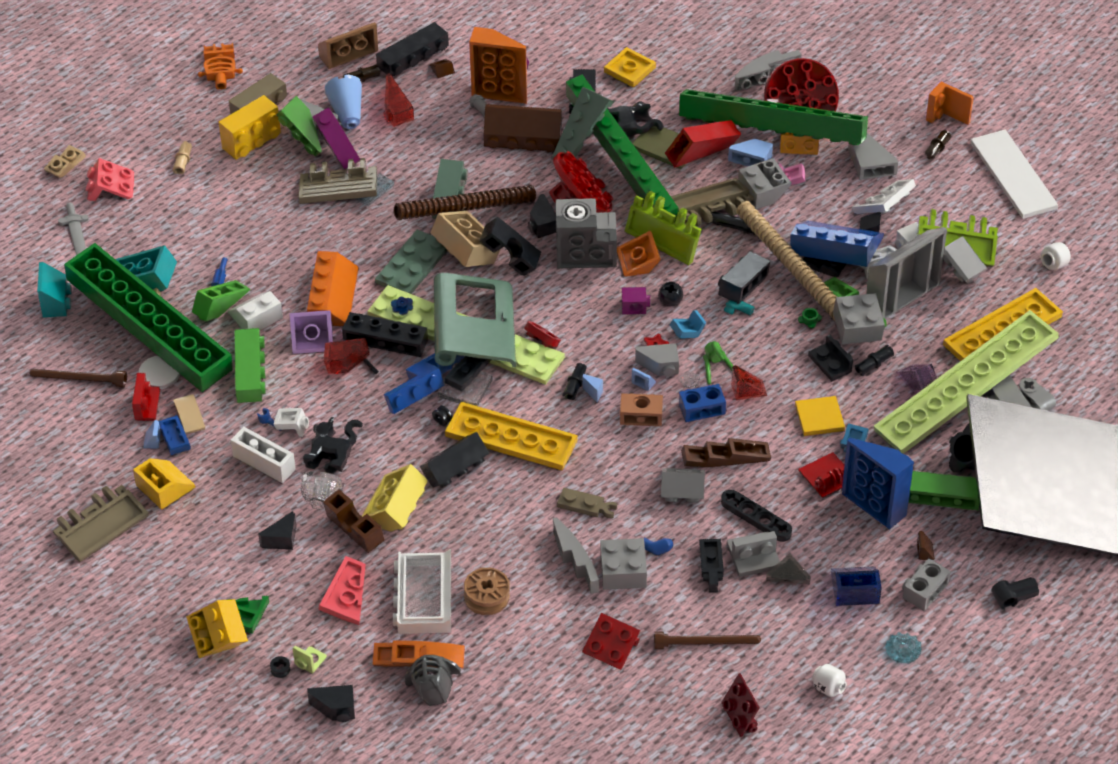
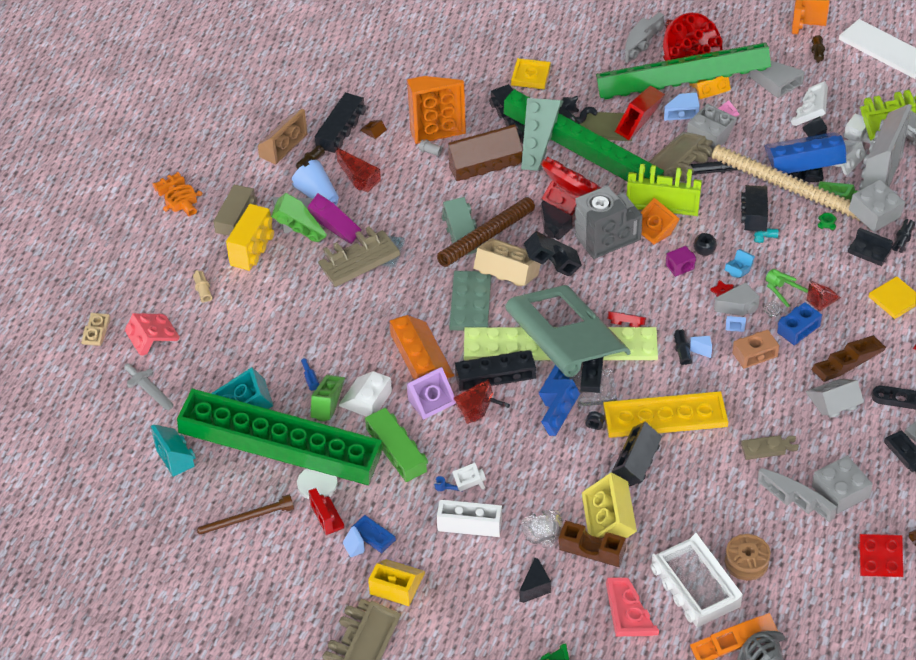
camera: 25 degrees left, 0 degrees up
(189, 414) = (372, 507): tan slope -> none
(327, 447) = (523, 487): black animal -> none
(402, 305) = (492, 339): clear blue plant -> none
(658, 547) = (857, 456): blue arm -> none

